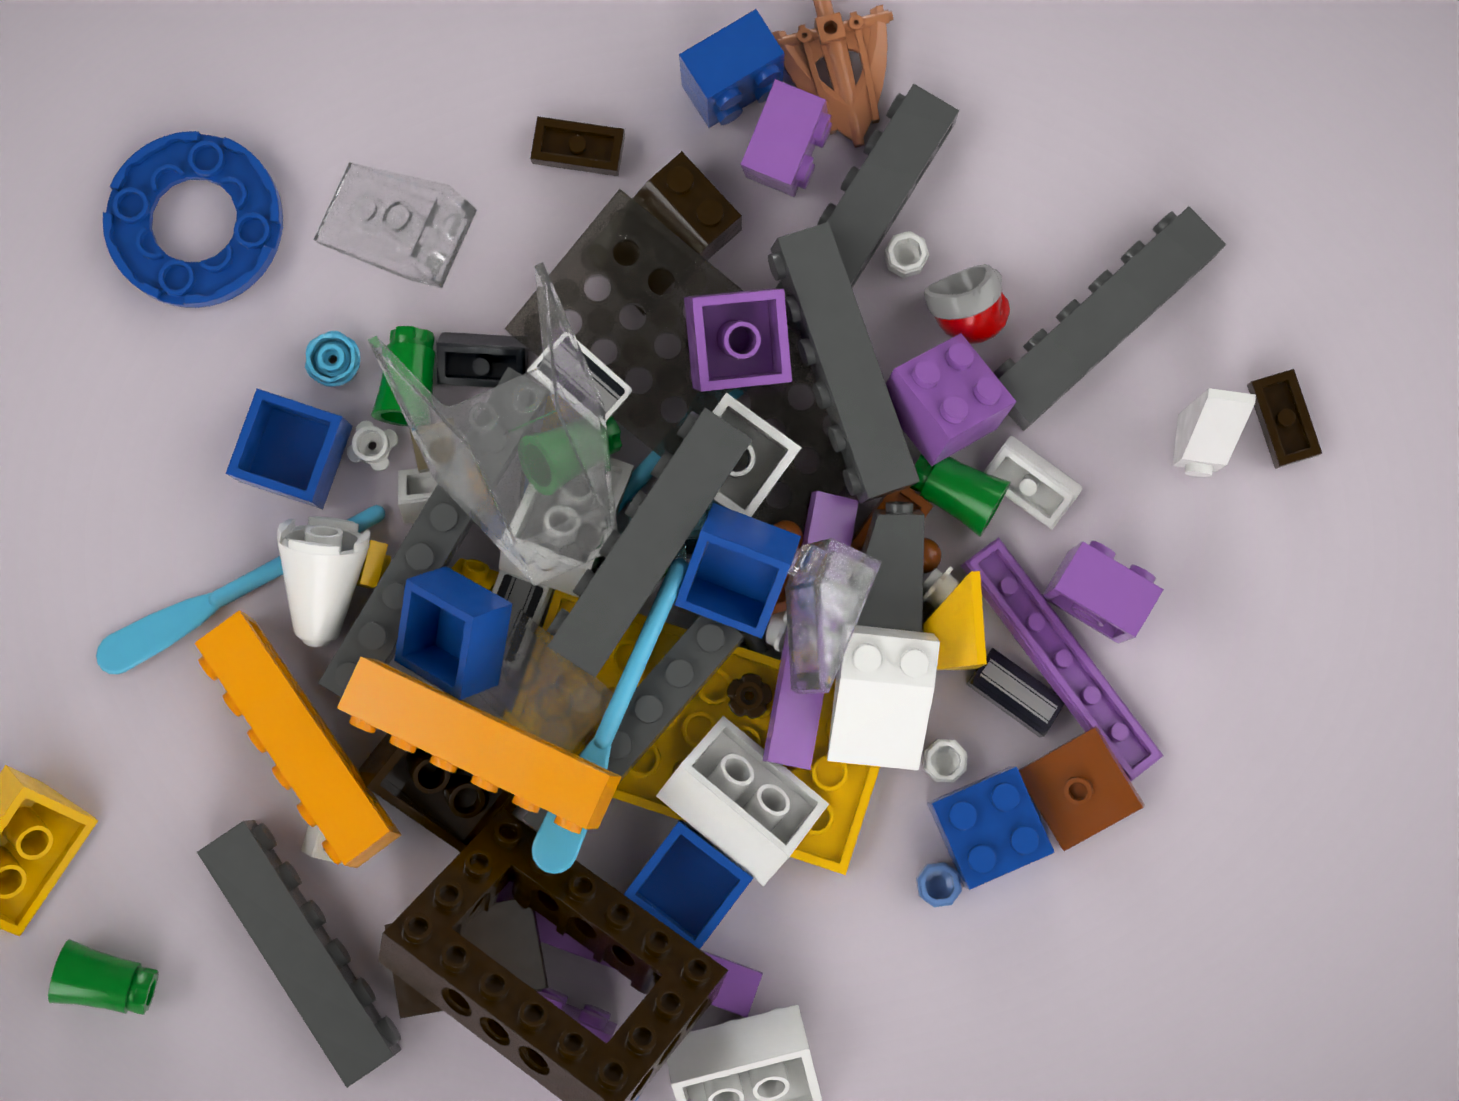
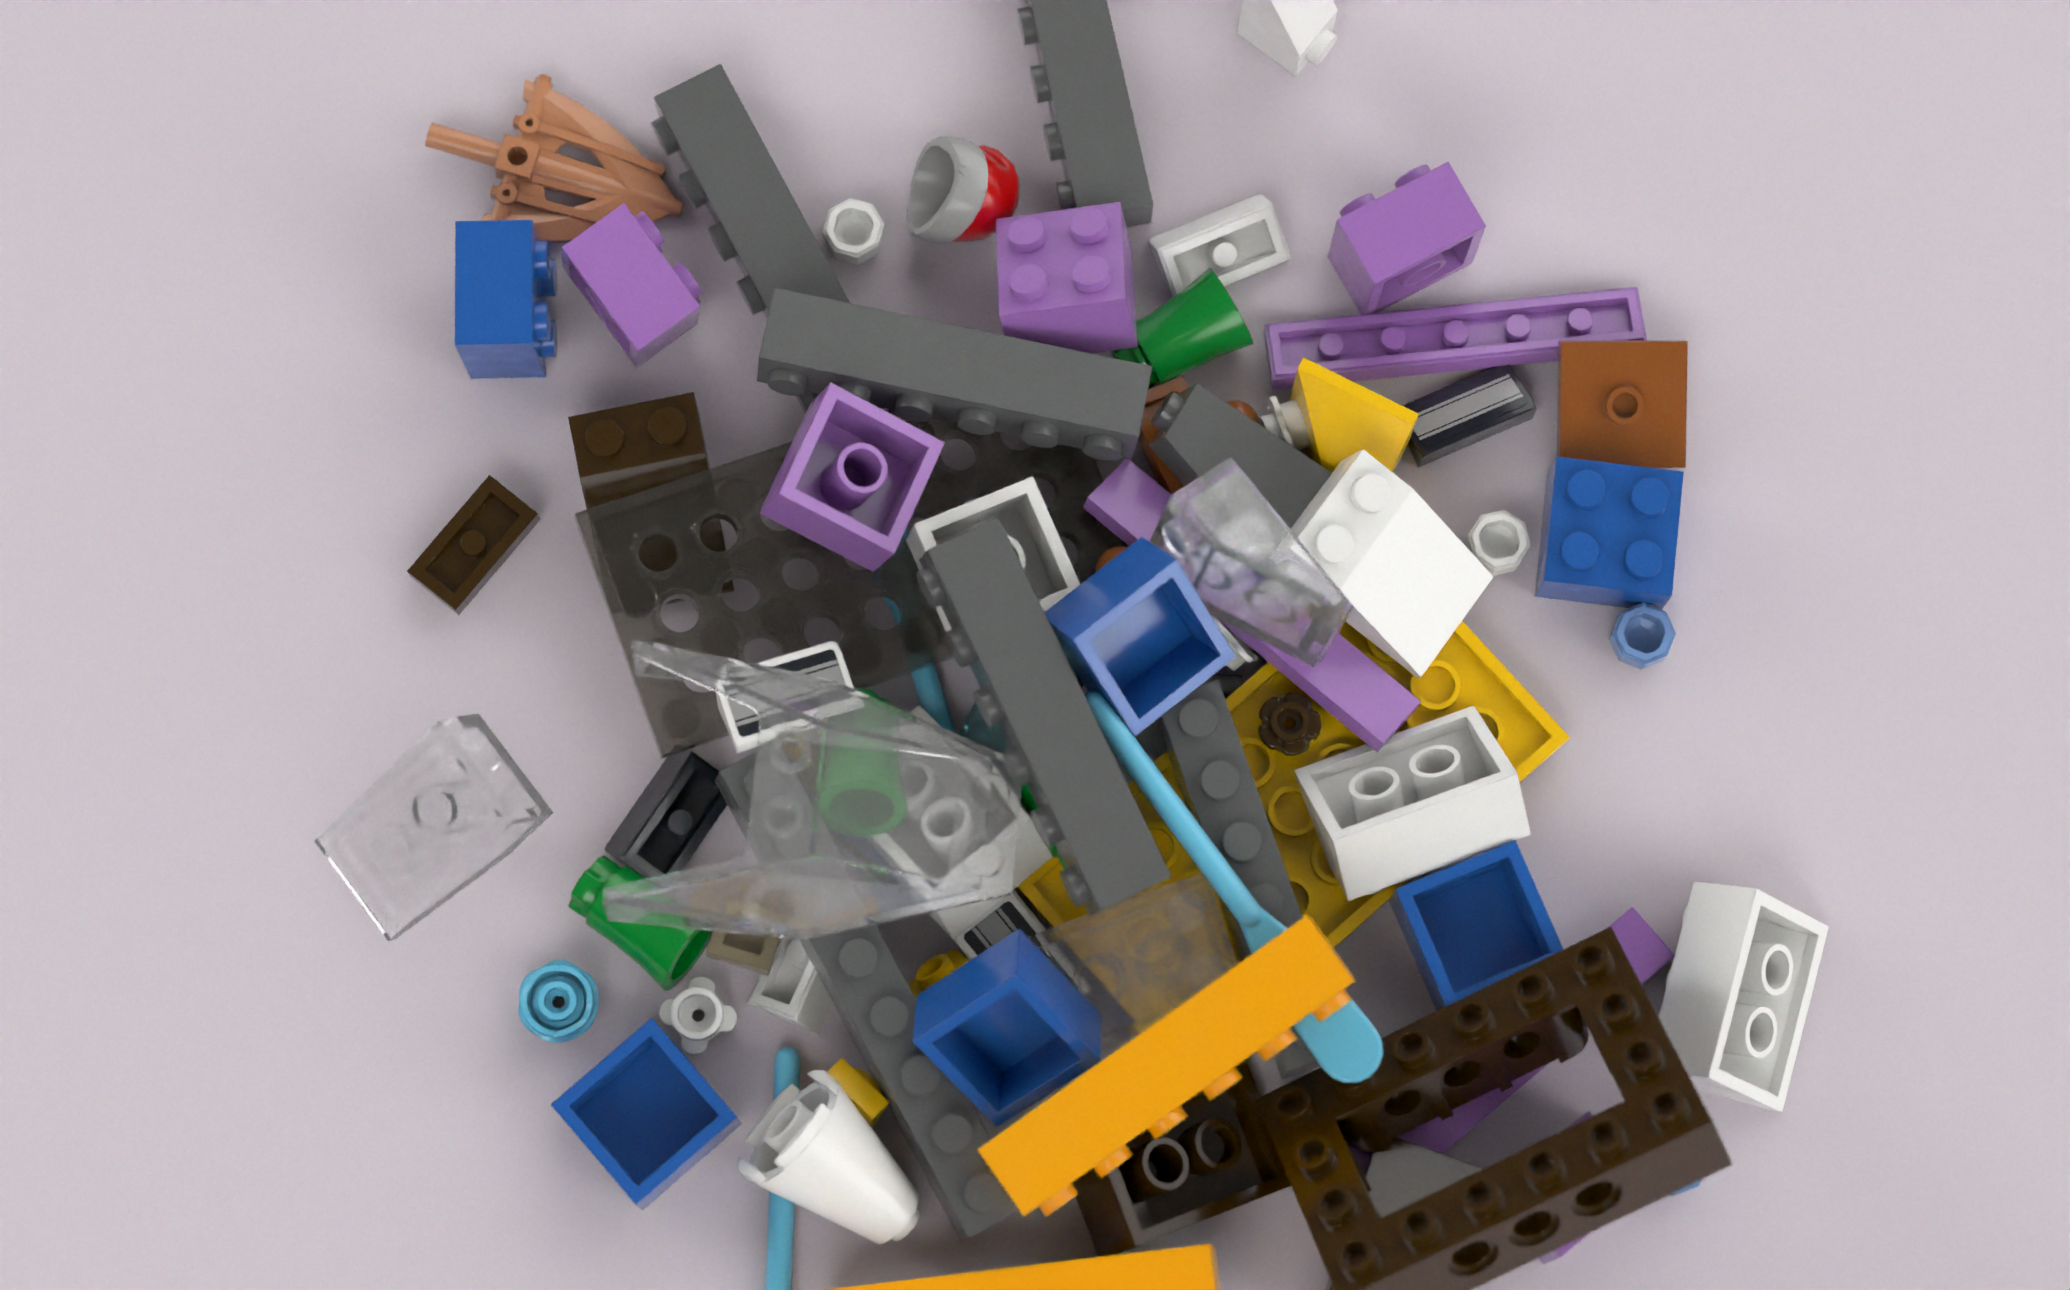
camera: 65 degrees left, 5 degrees down
(149, 176) = (176, 1062): blue plate -> none

